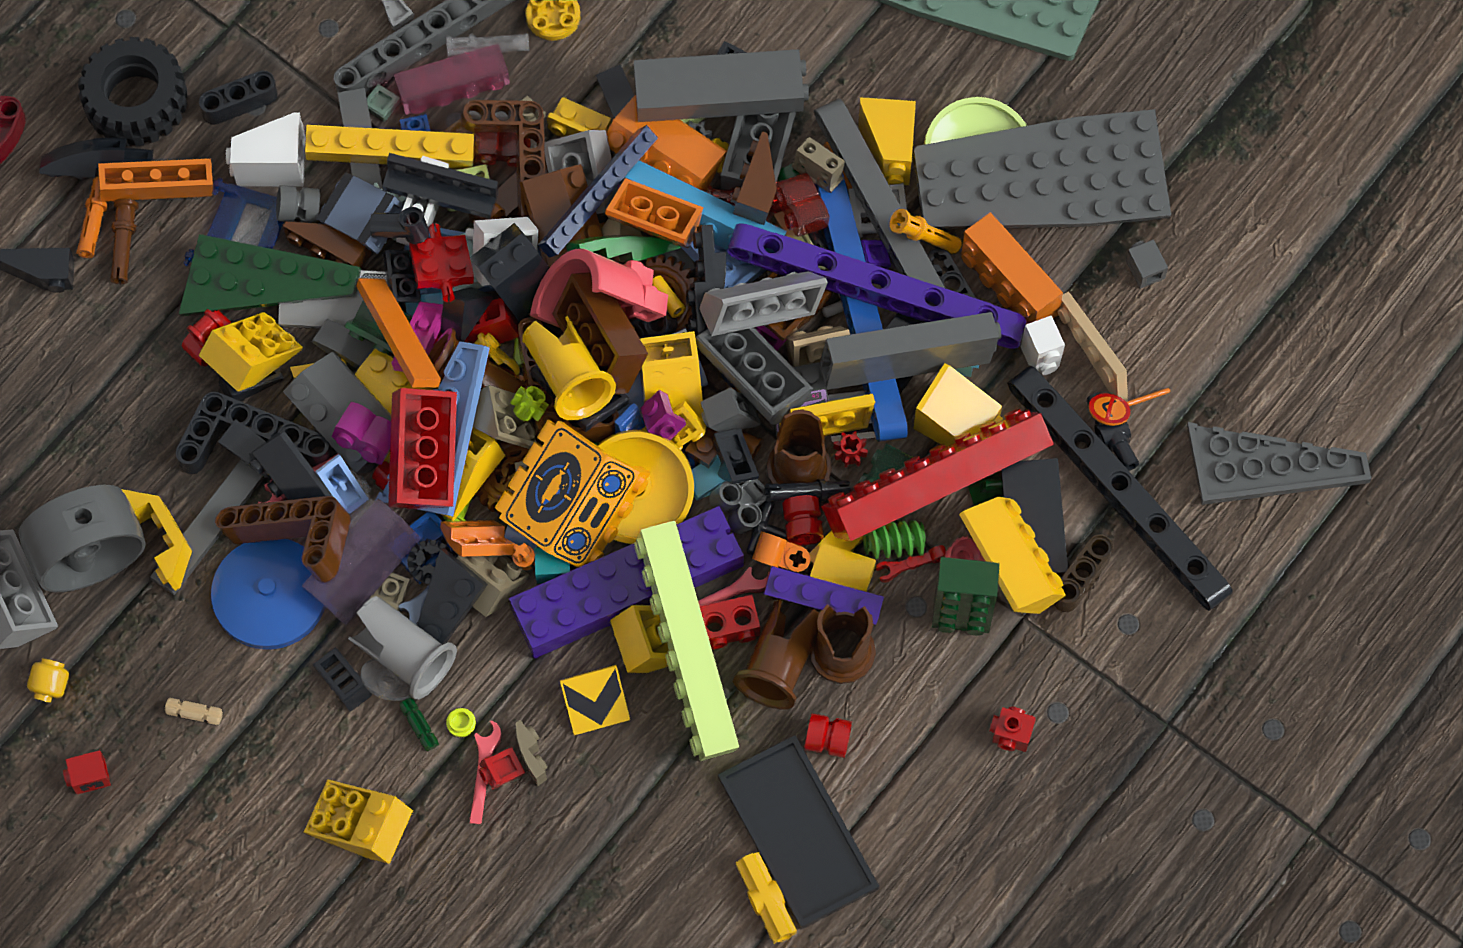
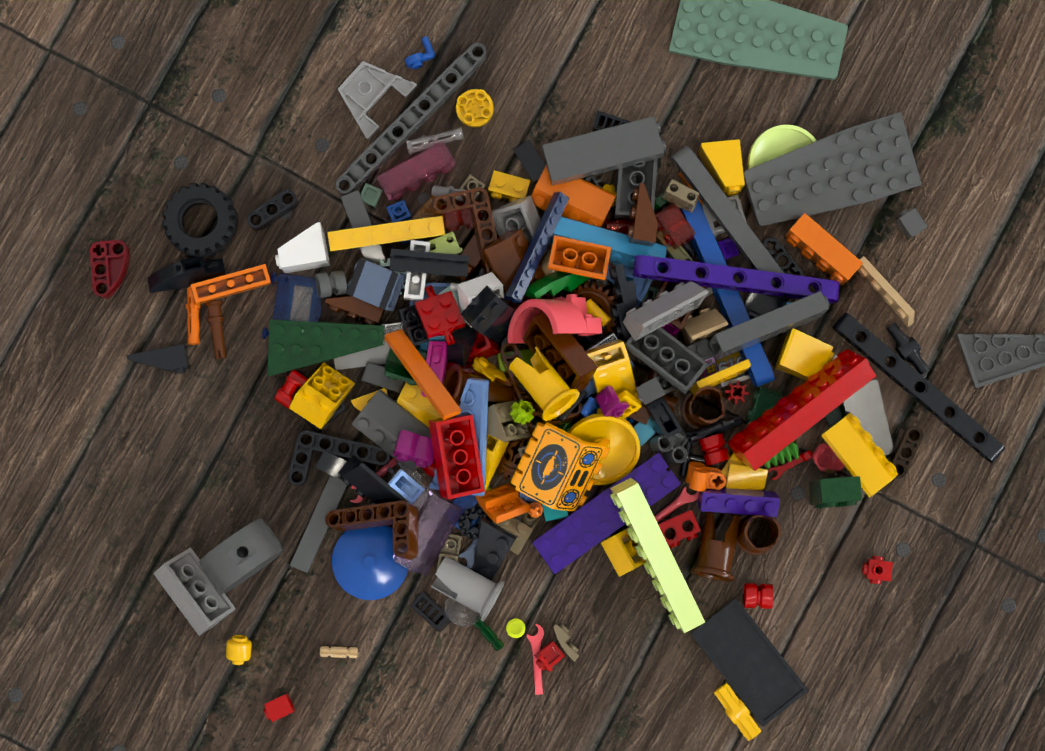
camera: 10 degrees left, 15 degrees up
(175, 560) = (304, 556): yellow slope -> none
(359, 820) = (463, 707): yellow slope -> none
(406, 224) = (405, 296): black piece -> none
(595, 700) = (601, 598): yellow piece -> none
(918, 229) = (774, 231): light orange pin -> none
(1043, 345) = (853, 299): white brick -> none
(1114, 410) = (906, 335): piece -> none

